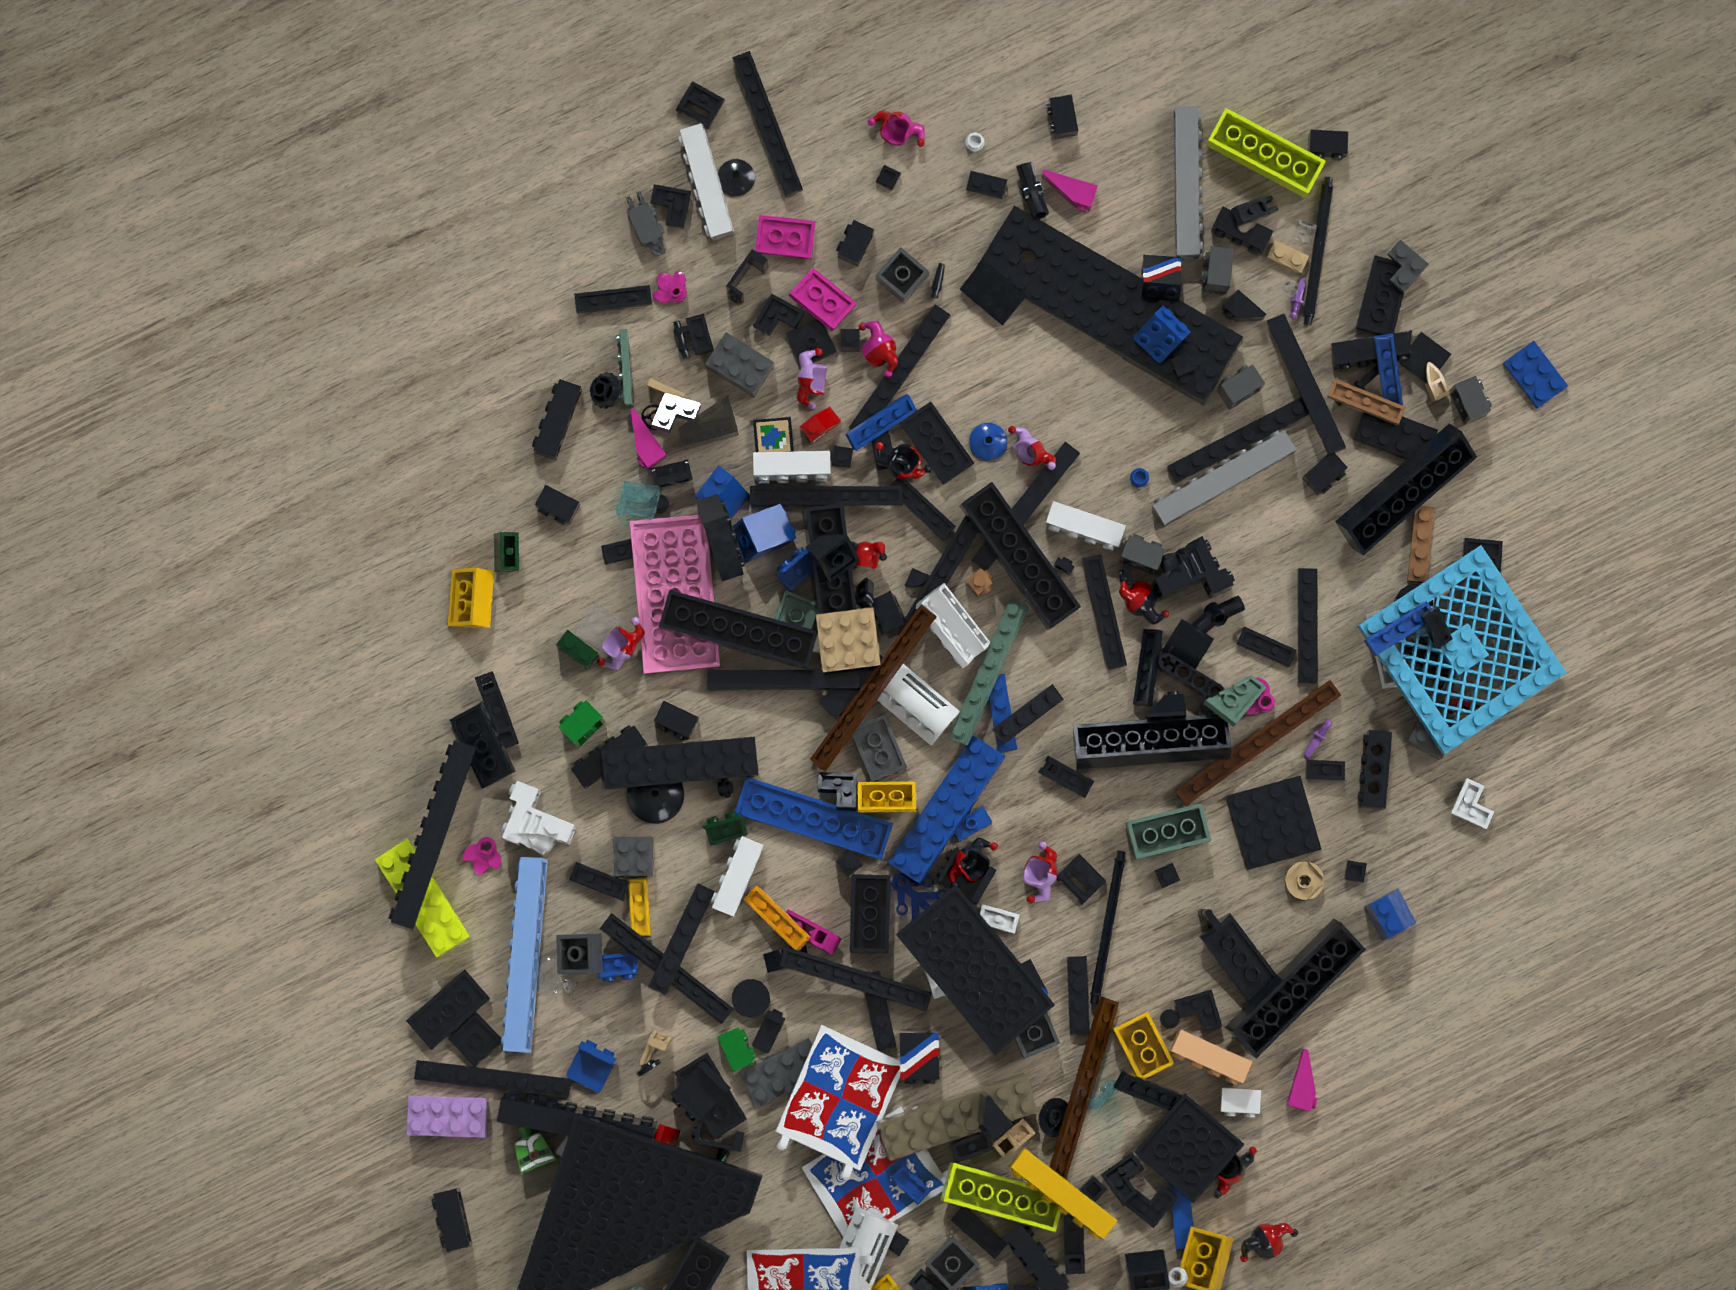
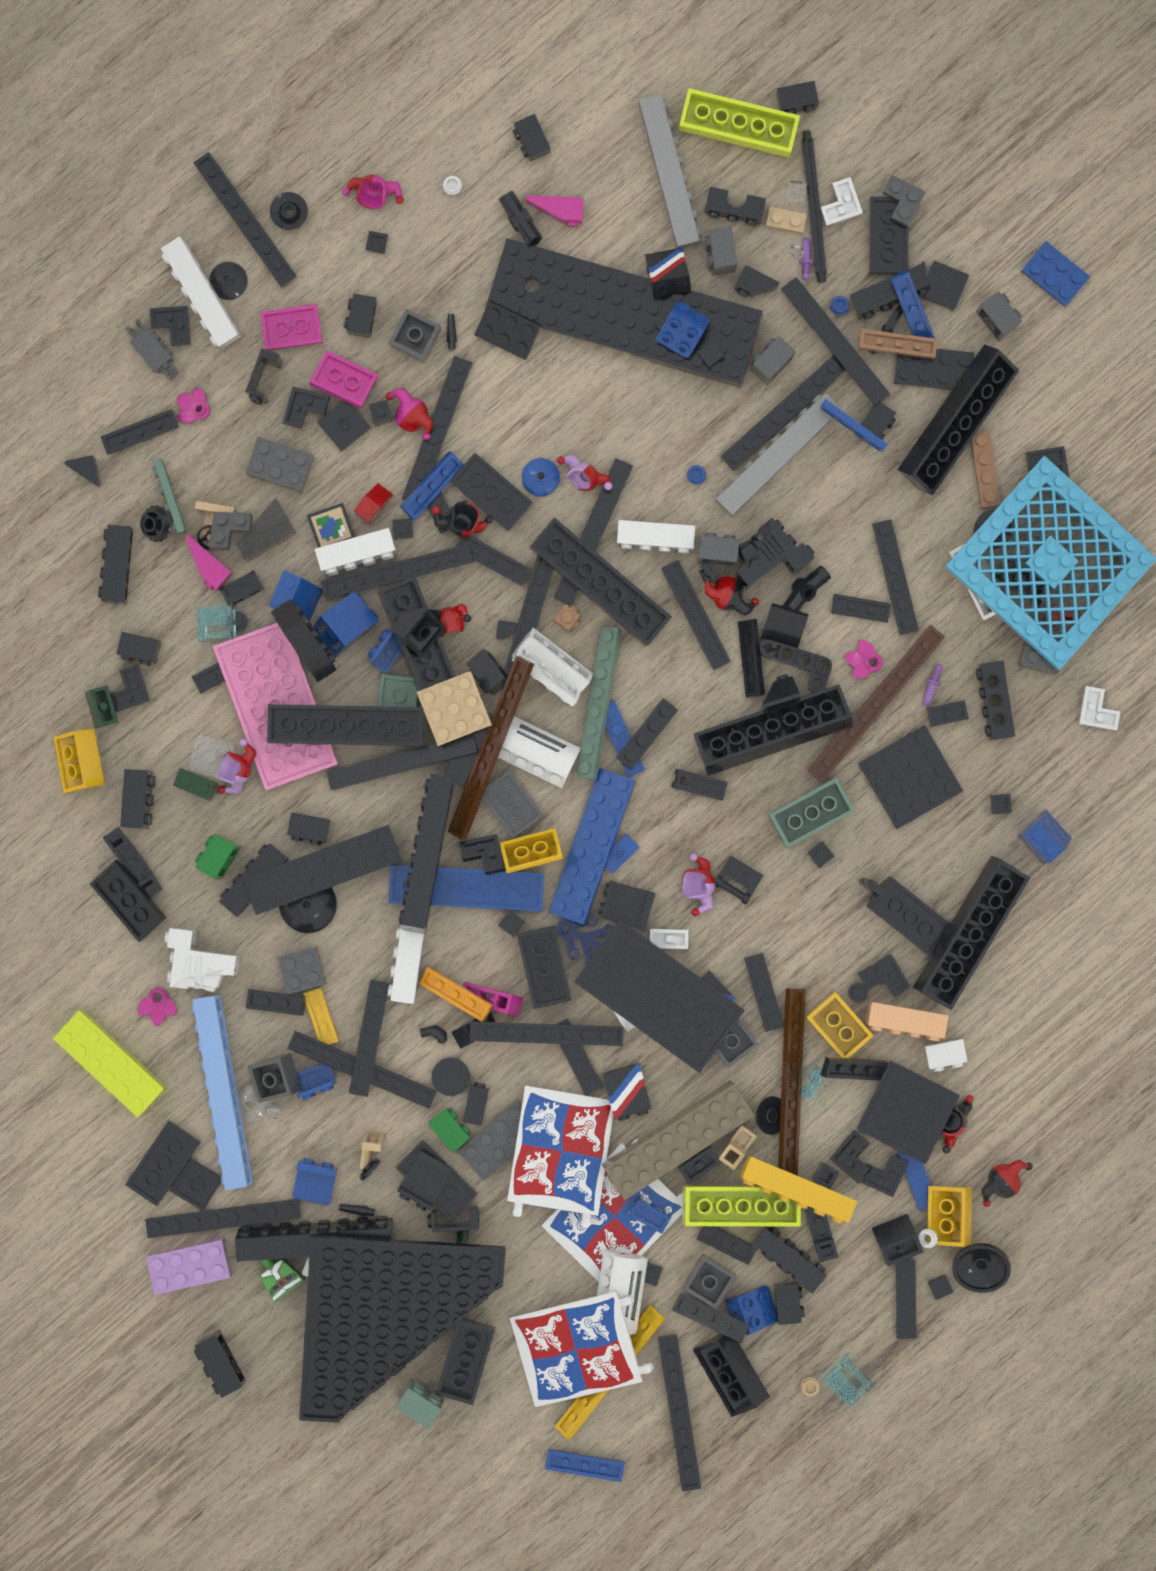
camera: 10 degrees left, 5 degrees up
(433, 835) = (102, 1003): black brick -> none
(518, 649) = (137, 799): none -> black brick
(543, 544) = (134, 692): none -> black plate
(552, 320) = (85, 467): none -> black slope
(626, 1105) = (357, 1209): none -> black animal
(667, 1134) = (404, 1230): red tile -> none
(699, 336) = (233, 446): black plate -> none
(703, 99) = (177, 212): black plate -> none
(725, 788) = (373, 881): black plate -> none
(725, 828) = (382, 920): dark green bracket -> none
(750, 953) = (435, 1031): none -> black arm
(786, 772) = (427, 855): none -> black brick
(810, 378) = (352, 459): lavender piece -> none
(813, 117) = (285, 202): none -> black dish
(864, 593) = (458, 657): black plate -> none
(971, 861) = (628, 891): black piece -> none
(986, 184) = (474, 224): black plate -> none
(991, 1118) = (712, 1137): black slope -> none
(1064, 565) = (645, 579): black plate -> none
(1107, 927) = (776, 919): black piece -> none
(1236, 700) = (845, 668): sand green wing -> none
(1253, 210) = (741, 183): black hinge -> none
(1293, 880) = (964, 823): tan plate -> none
(1303, 469) = (853, 426): none -> blue tile
(1303, 1088) = (1002, 1029): dark pink slope -> none
(1318, 351) = (839, 305): none -> blue plate
(1349, 259) = (846, 205): none -> white plate
(1397, 630) = (987, 559): blue plate -> none
(1436, 384) = (961, 307): tan plate -> none
(1436, 627) = (1021, 548): black tile -> none

